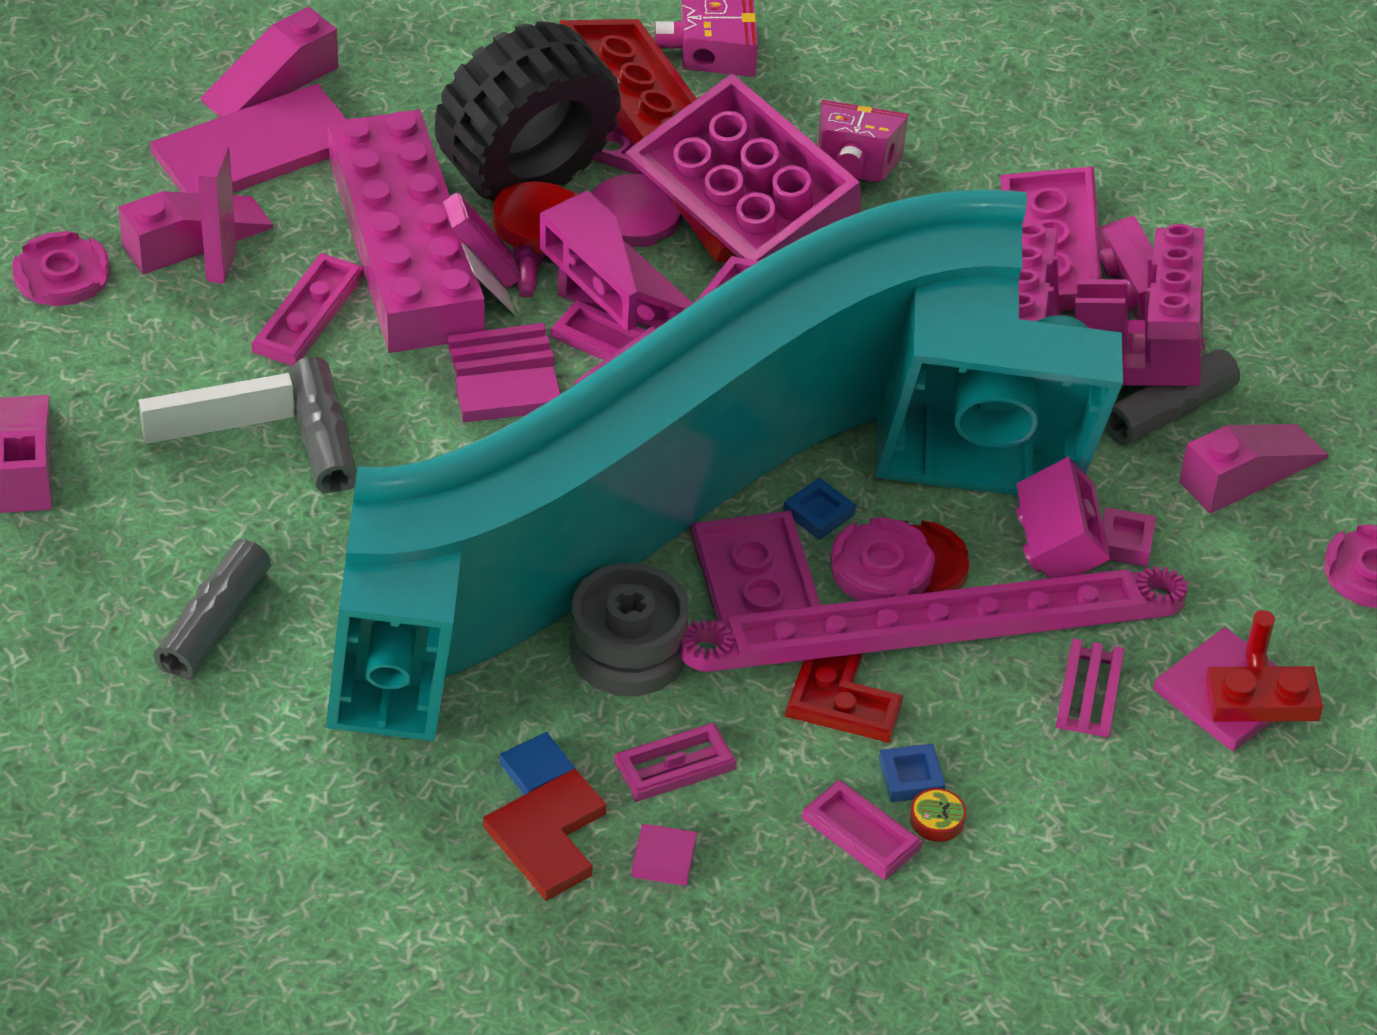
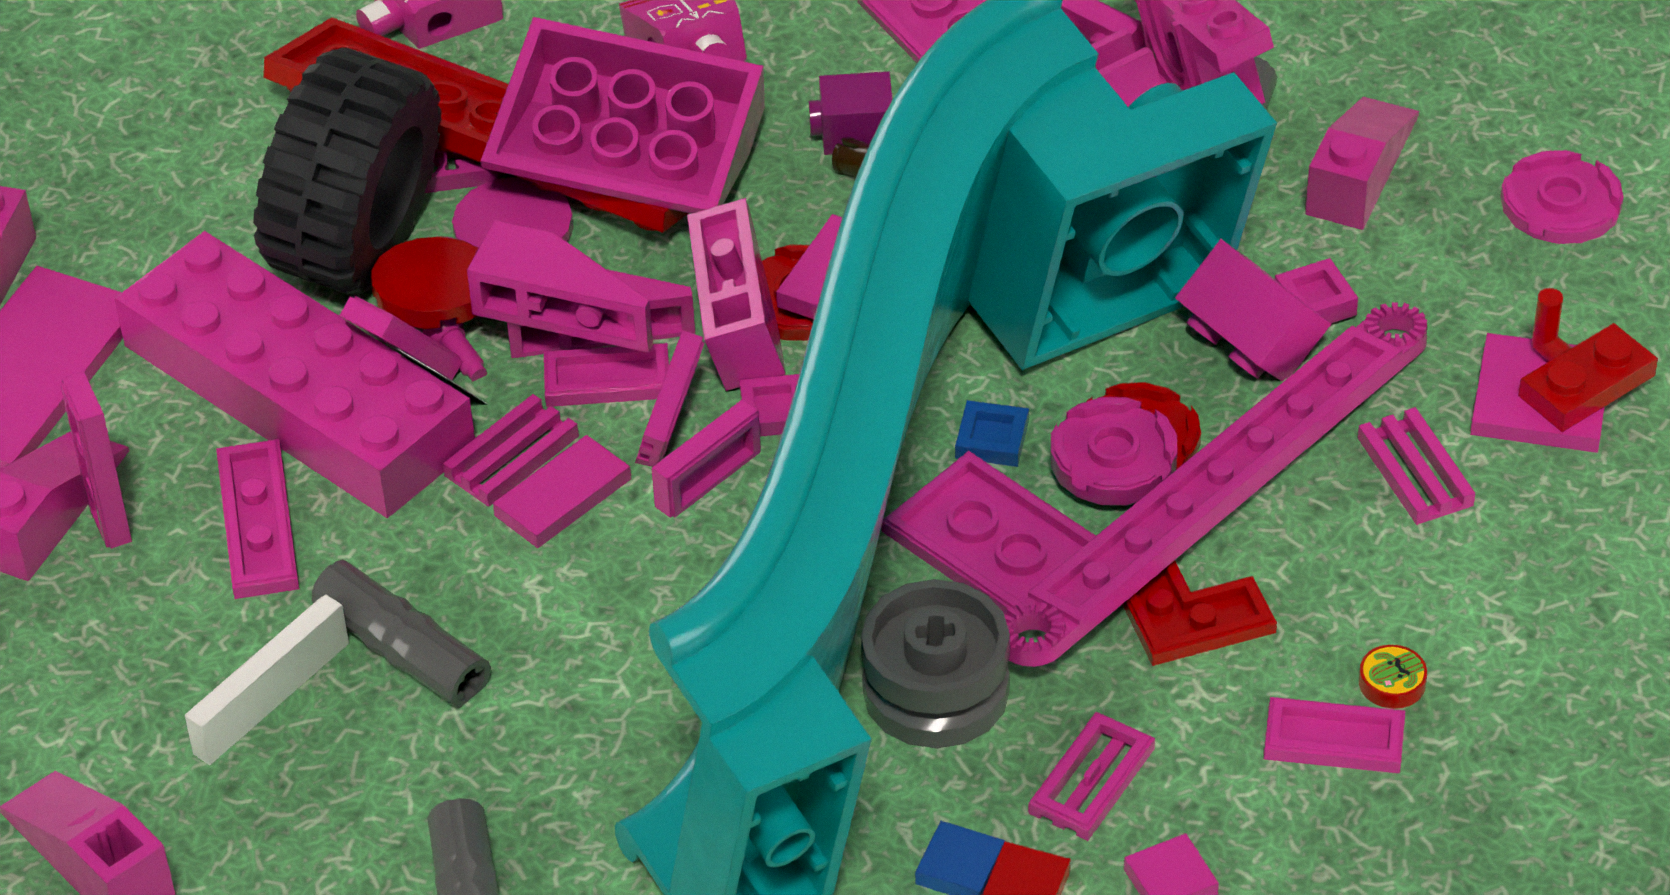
camera: 30 degrees left, 0 degrees up
(910, 771) = (1328, 649): blue tile -> none

